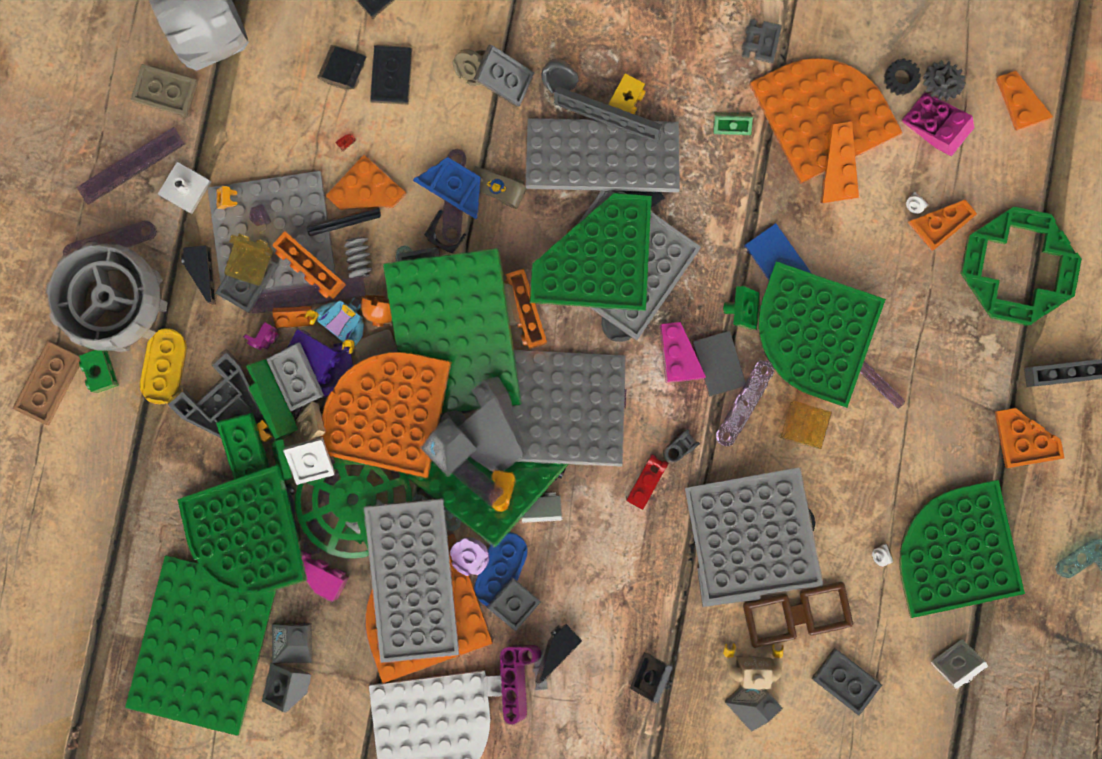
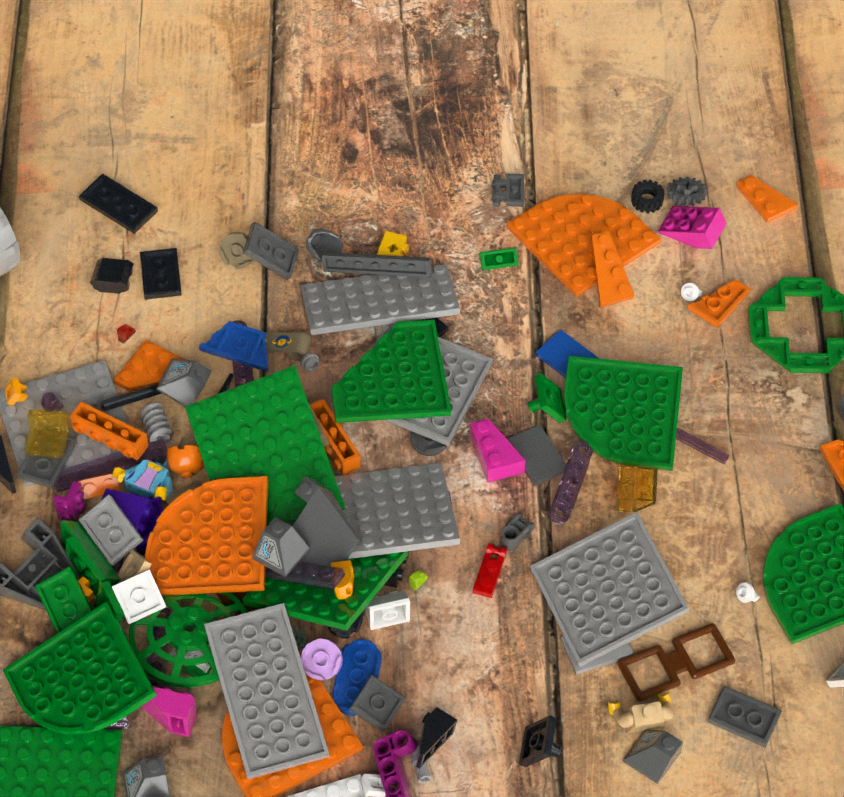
camera: 10 degrees left, 30 degrees down
(391, 215) = (183, 380): none -> dark grey slope
(520, 214) = (310, 362): none -> light grey plate
(577, 479) = (417, 579): none -> lime tile

